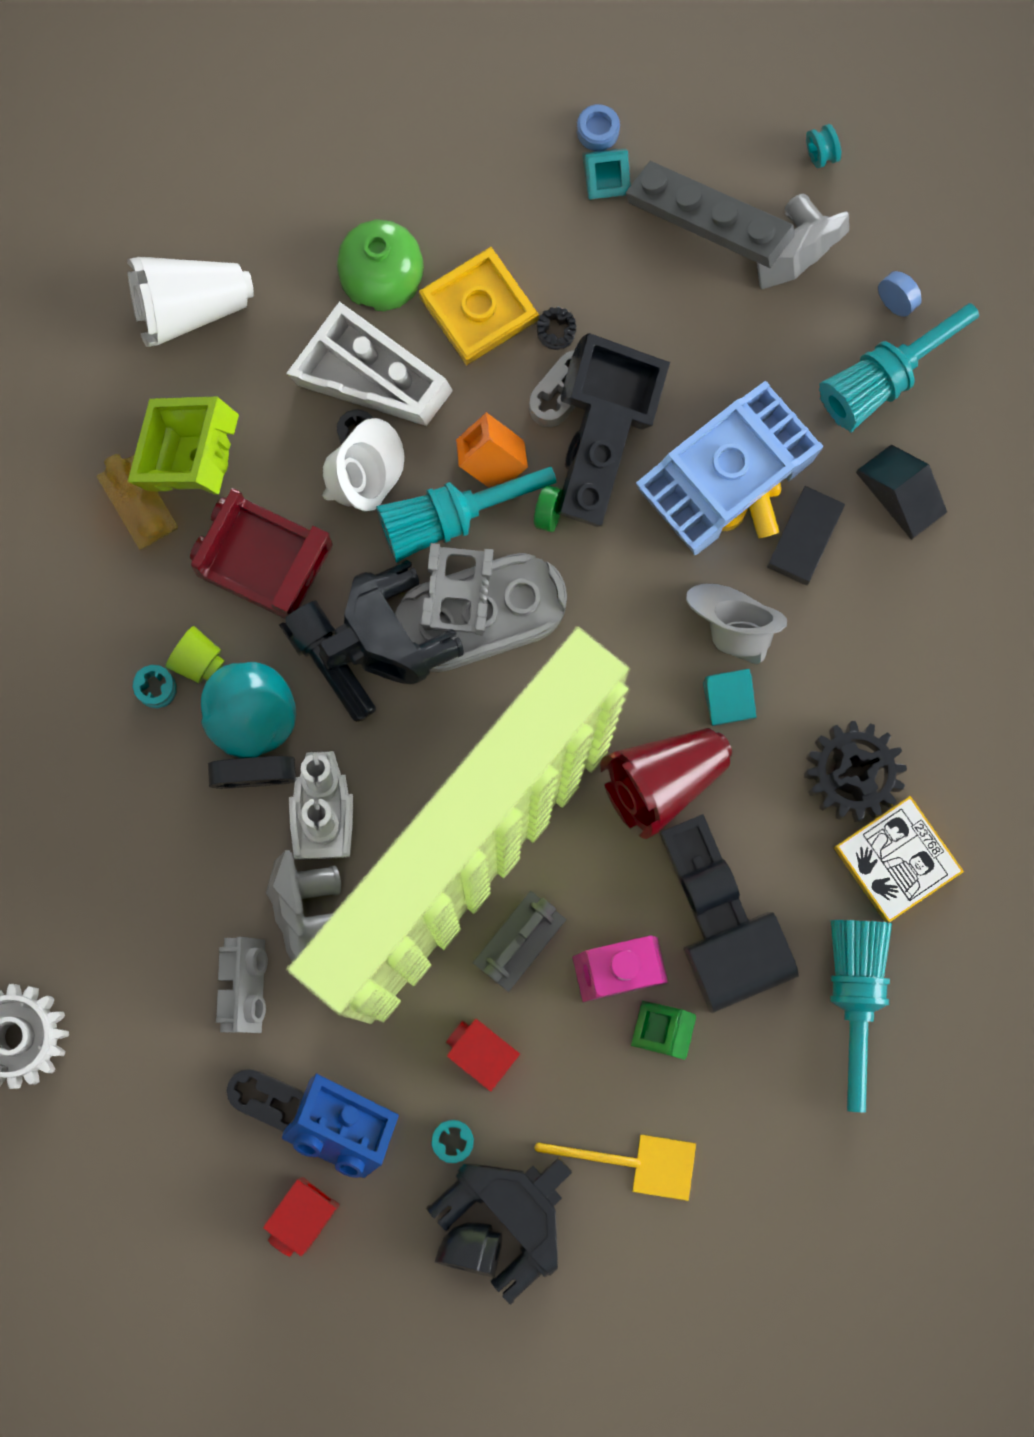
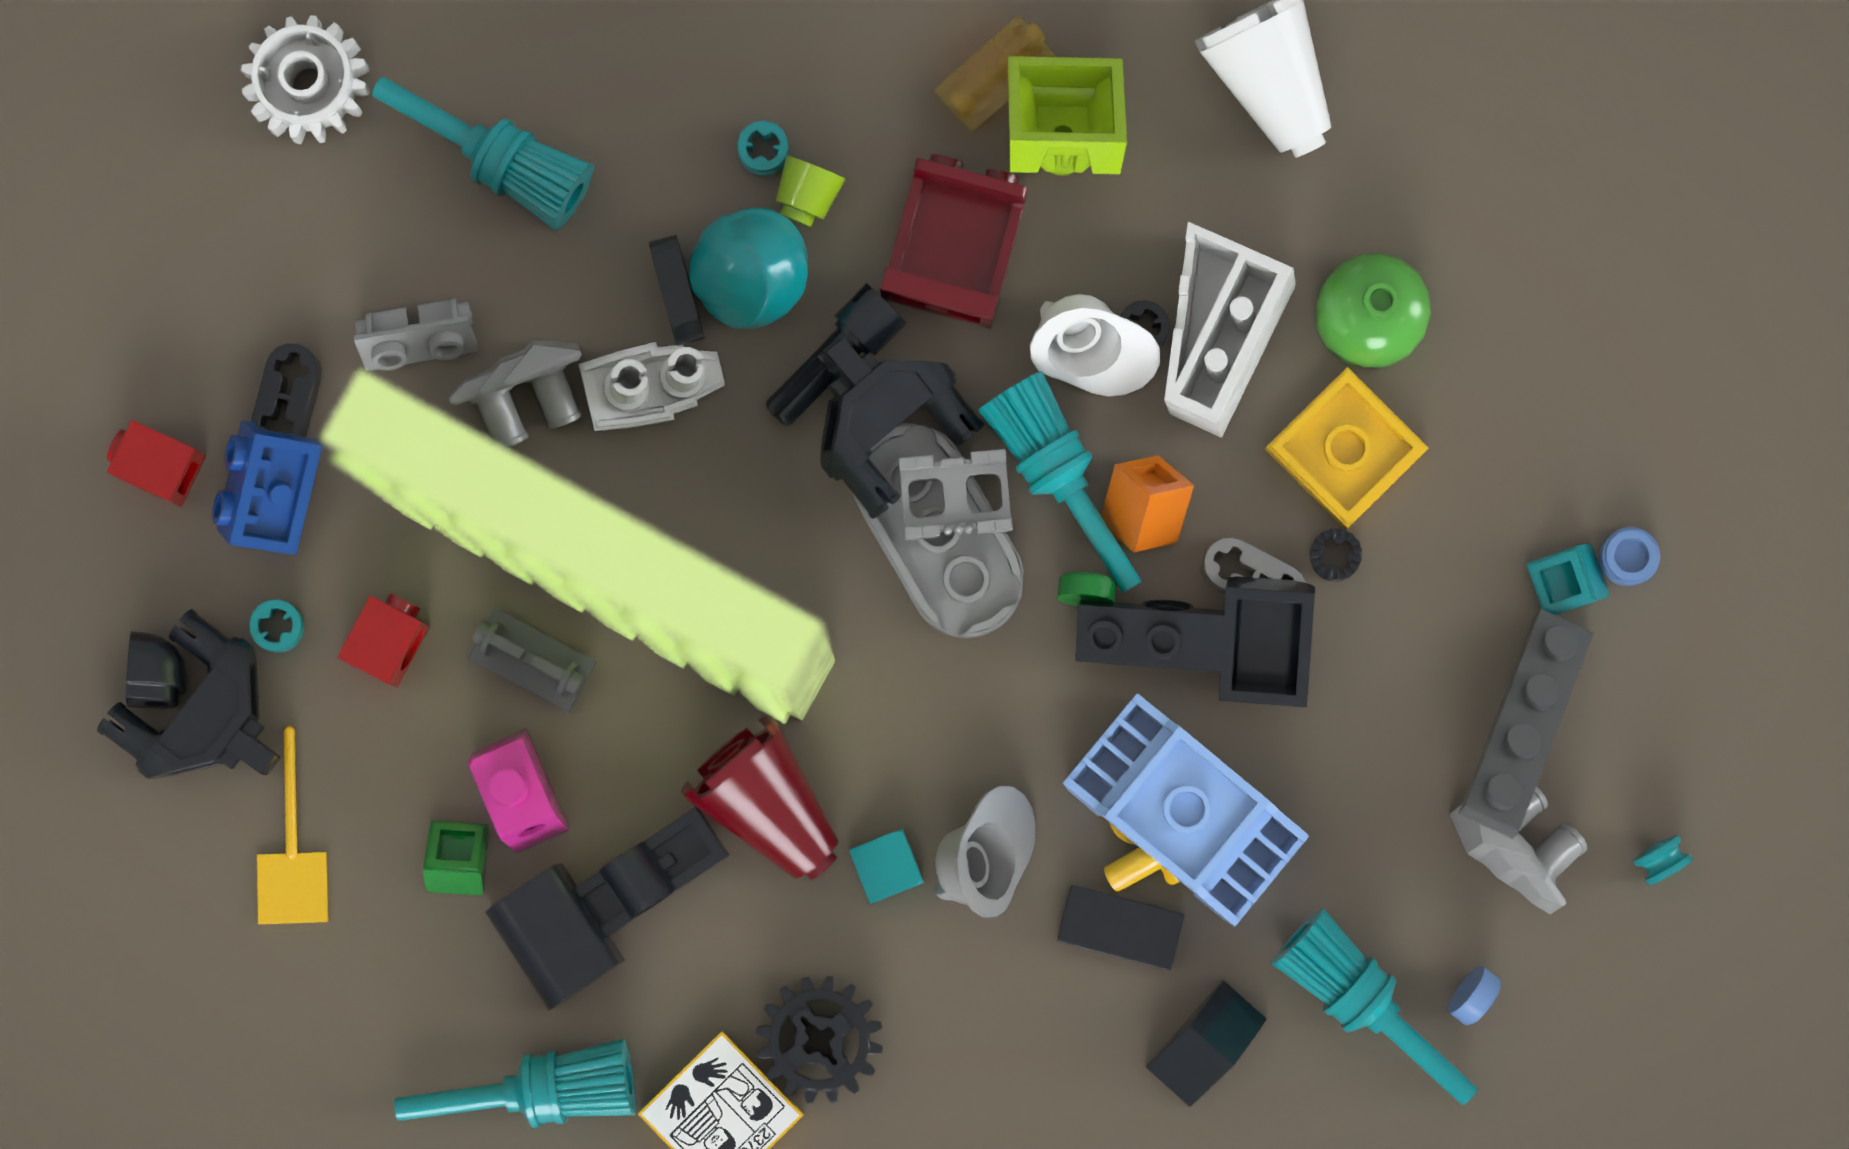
camera: 80 degrees right, 5 degrees up
(113, 888) = (503, 157): none -> teal piece

